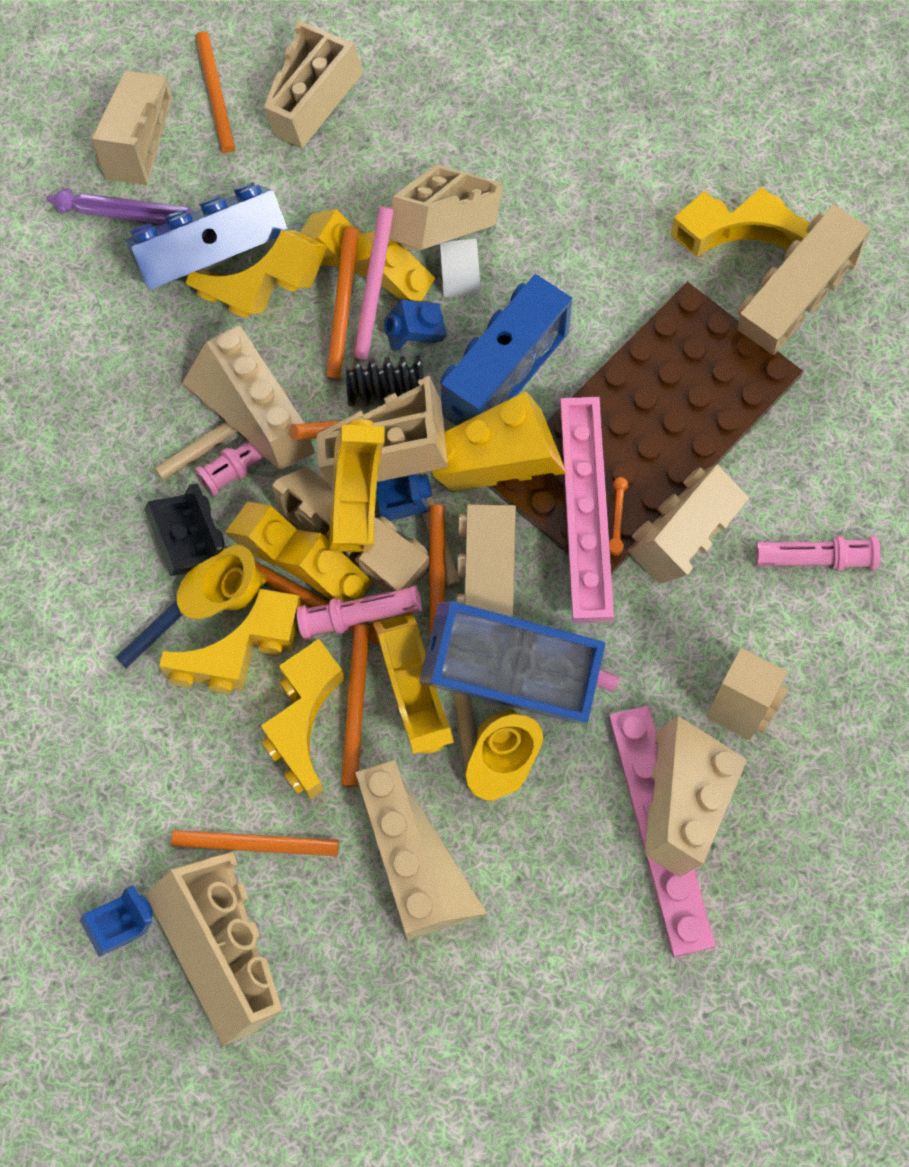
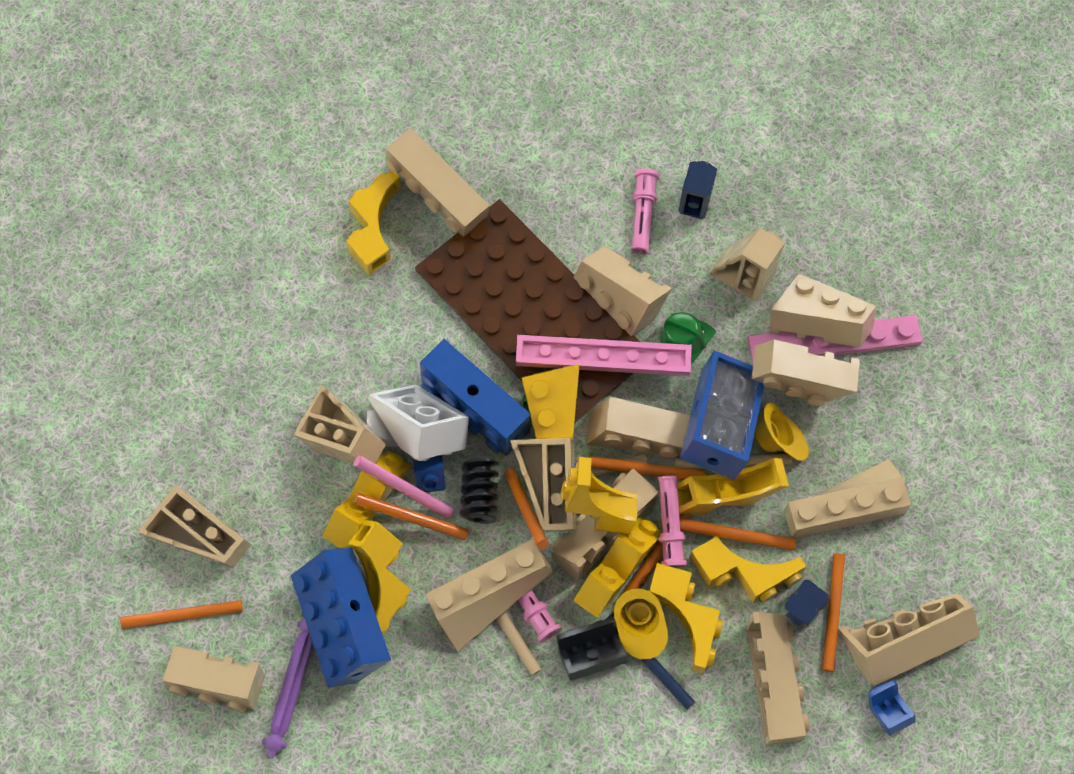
camera: 90 degrees left, 0 degrees up
(153, 763) = (776, 679): none -> tan wedge
(252, 792) = (806, 604): none -> dark blue brick
(462, 295) = (421, 422): none -> white slope
(588, 768) = (804, 374): none -> tan wedge
(615, 544) = (584, 332): orange hinge -> none
(640, 623) = (687, 330): none -> green piece
(858, 612) = (697, 189): none -> dark blue brick

